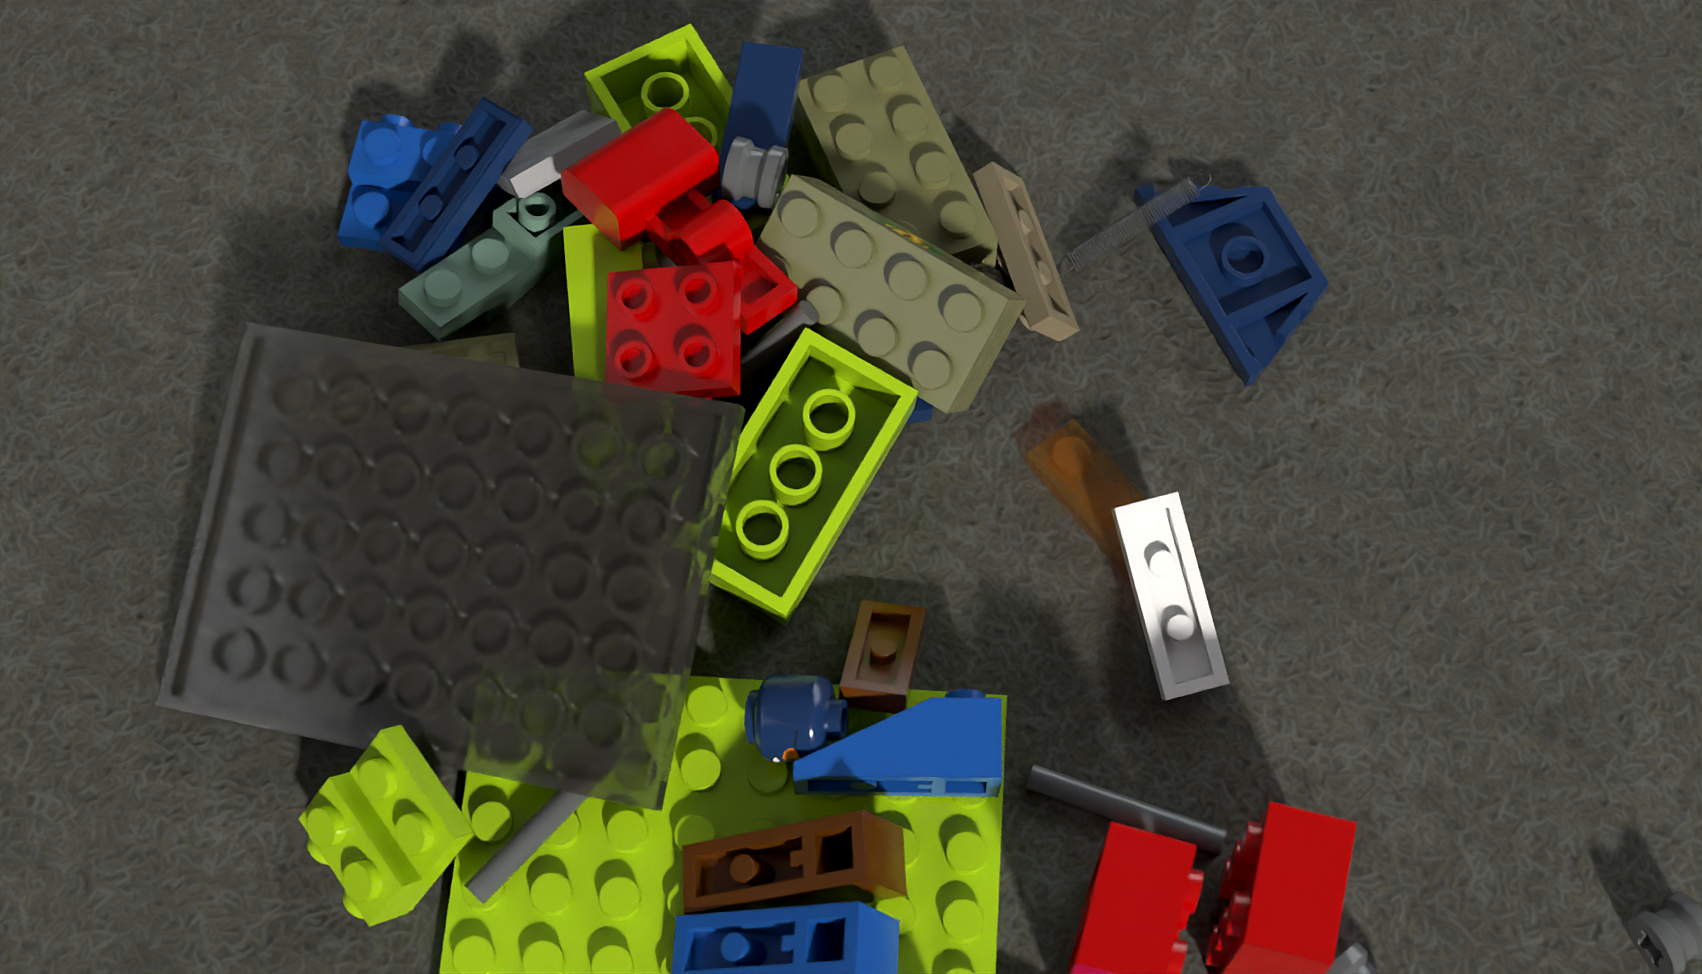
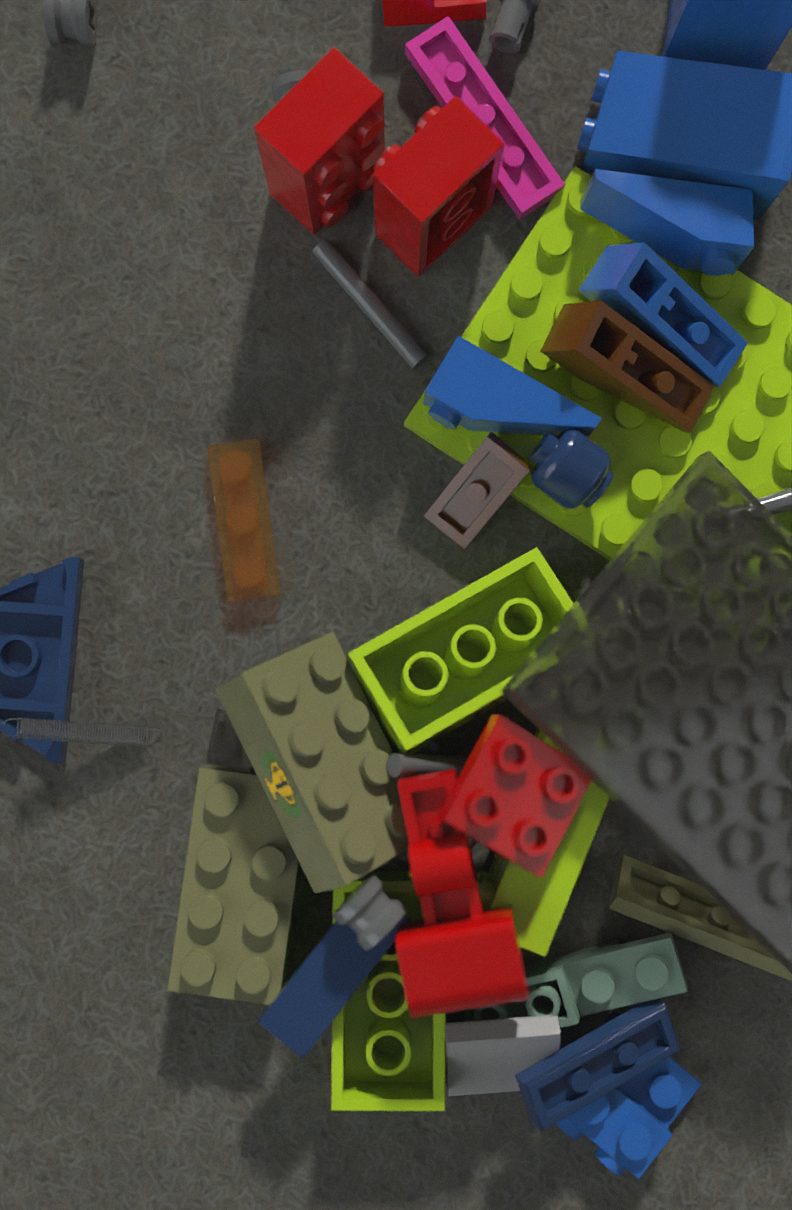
camera: 155 degrees left, 20 degrees up
(1025, 252) = (178, 760): dark tan plate -> none
(1170, 596) = (249, 420): white plate -> none

